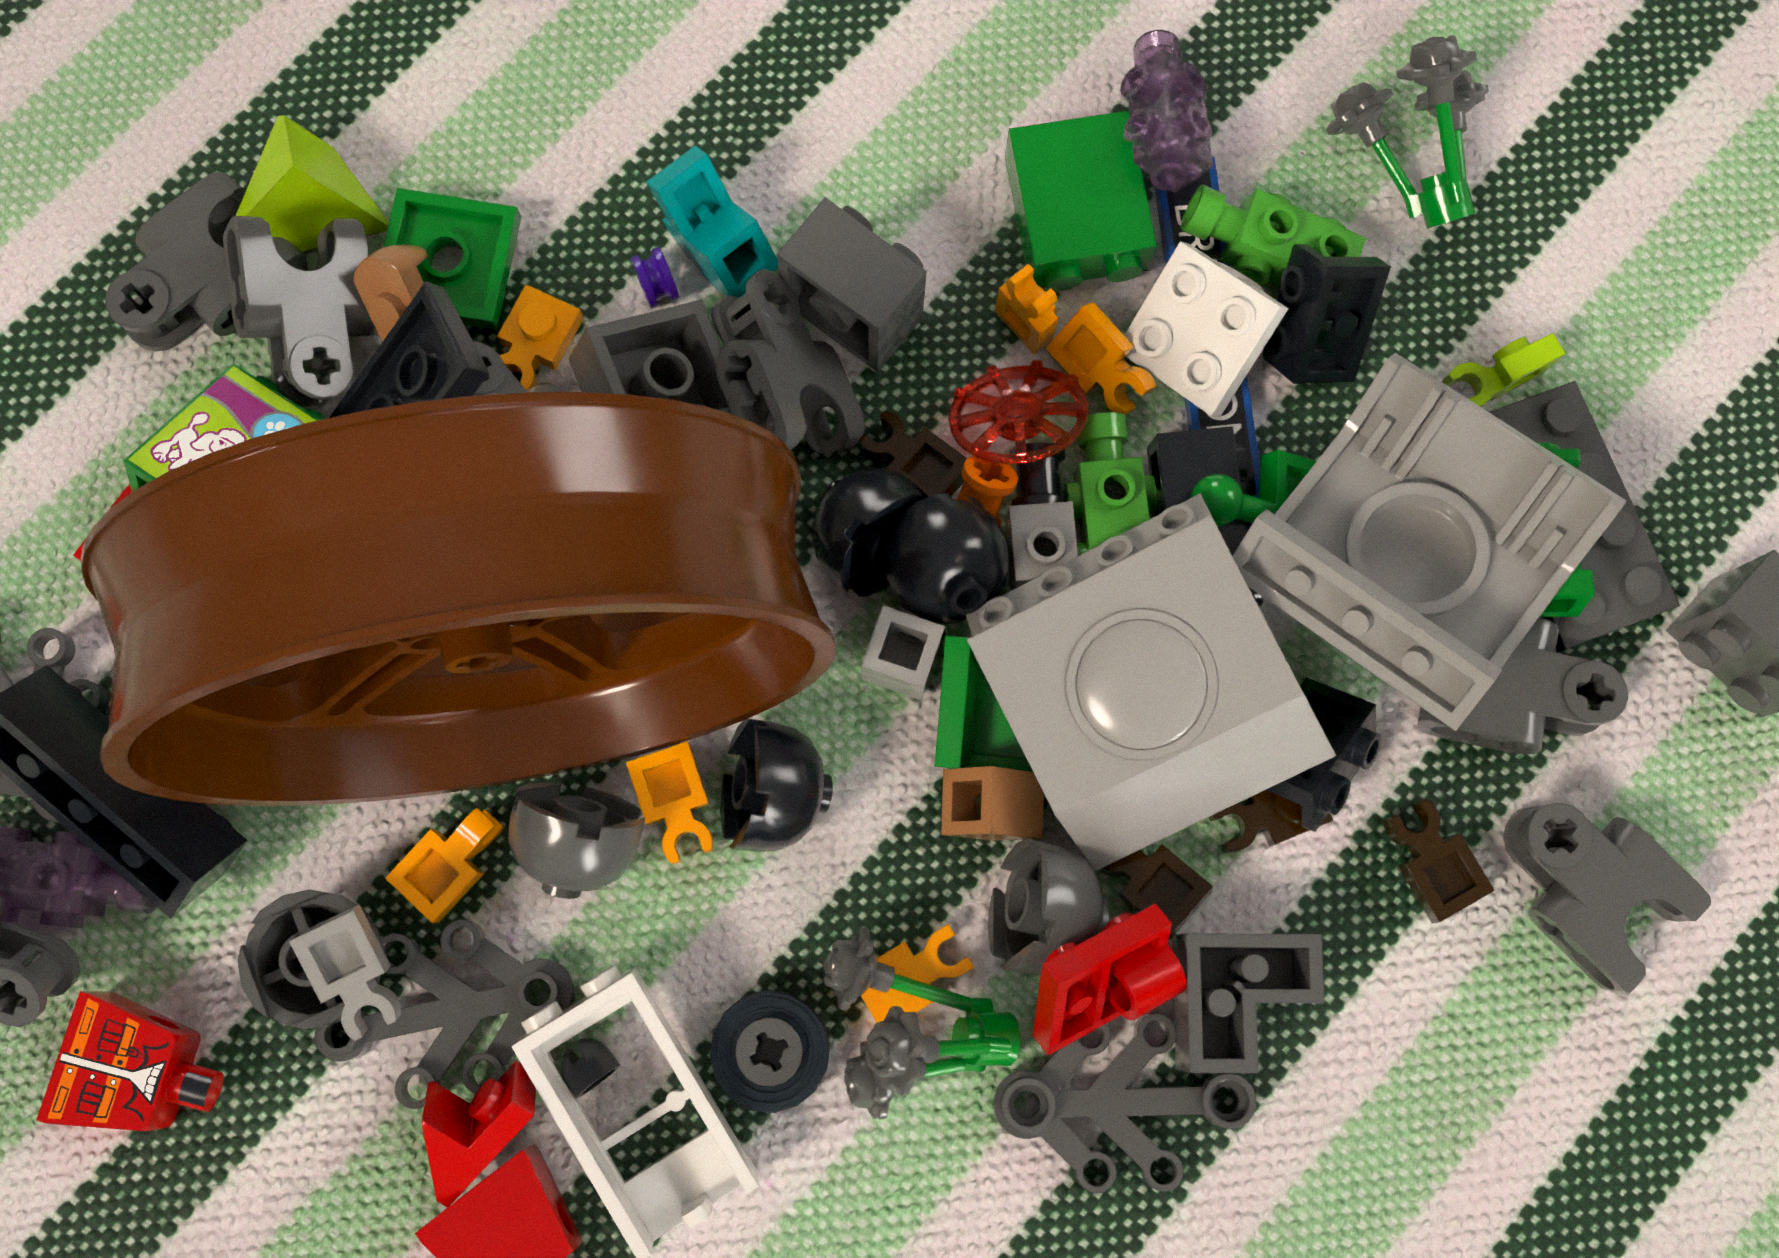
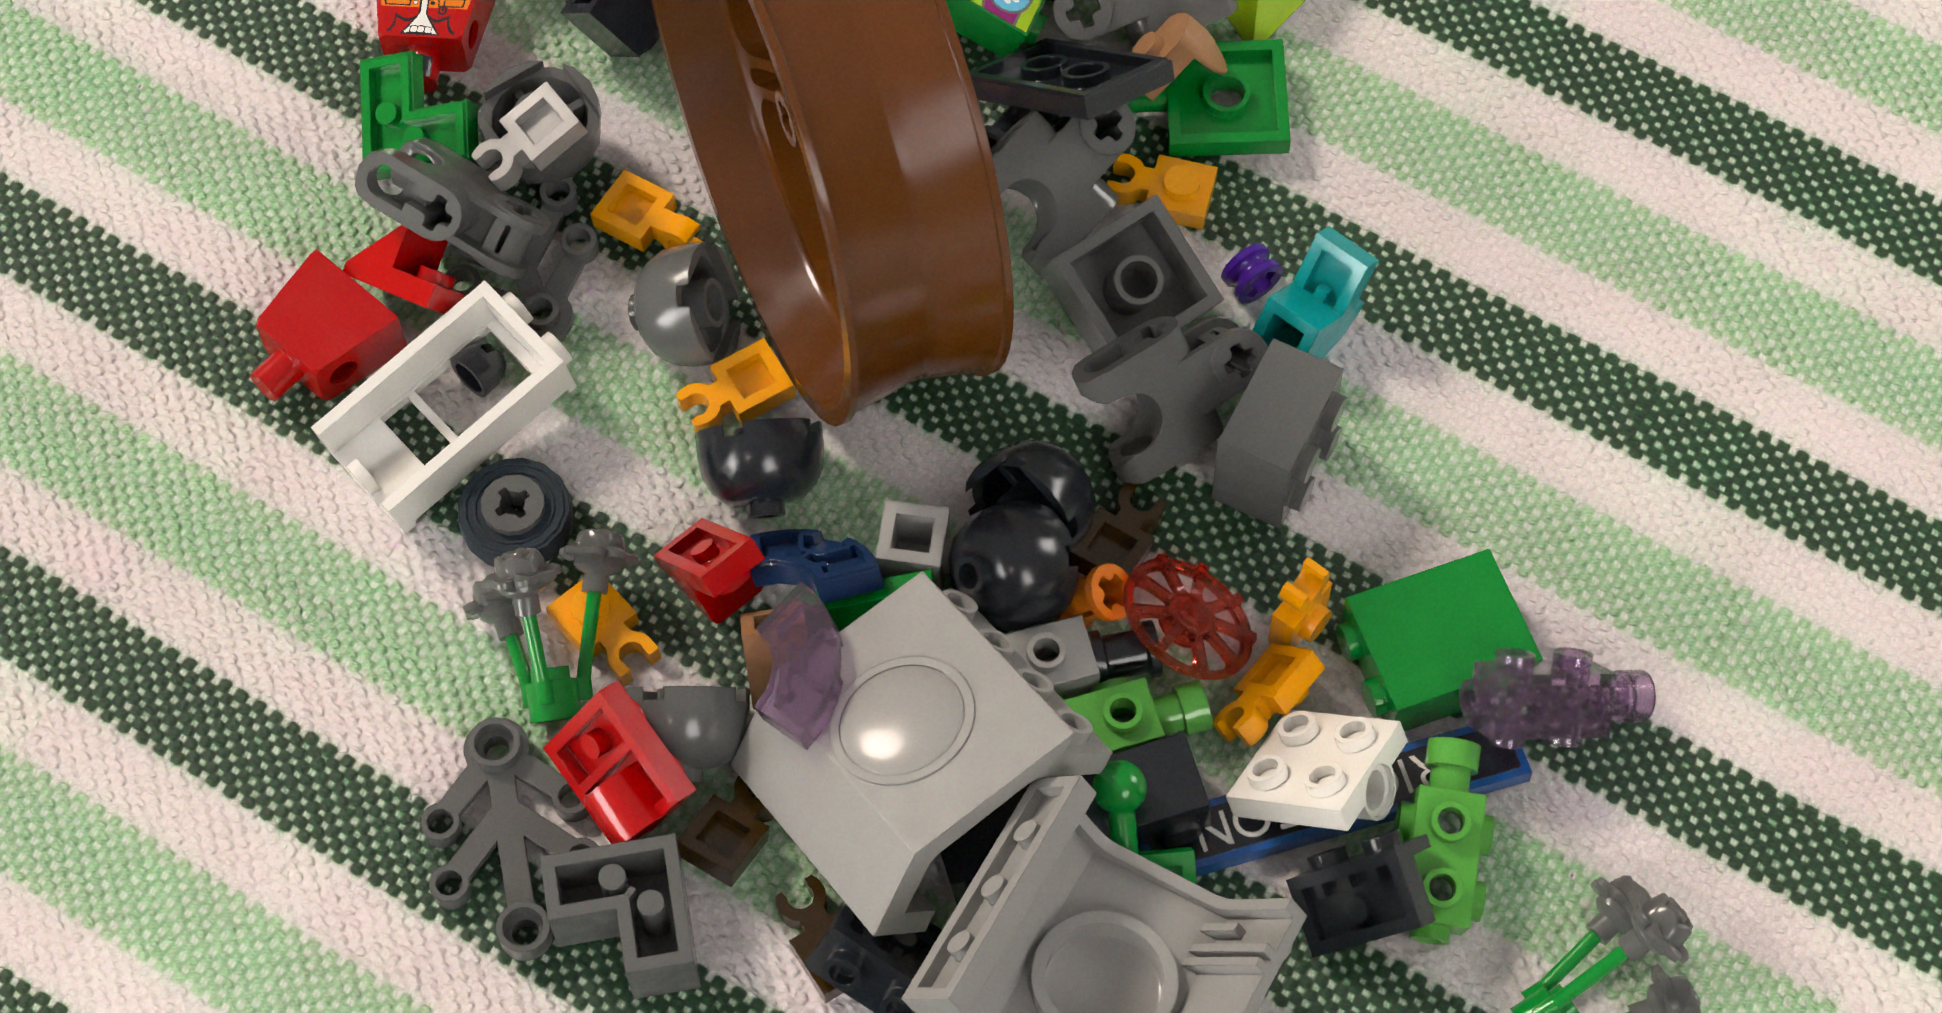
camera: 85 degrees right, 15 degrees down
(268, 1125) = (396, 111): none -> green tile
(404, 1071) = (453, 204): none -> dark grey piece
(869, 857) = (712, 567): none -> red slope
(898, 748) = (826, 566): none -> dark blue tile
(1055, 771) = (805, 666): none -> clear purple tile

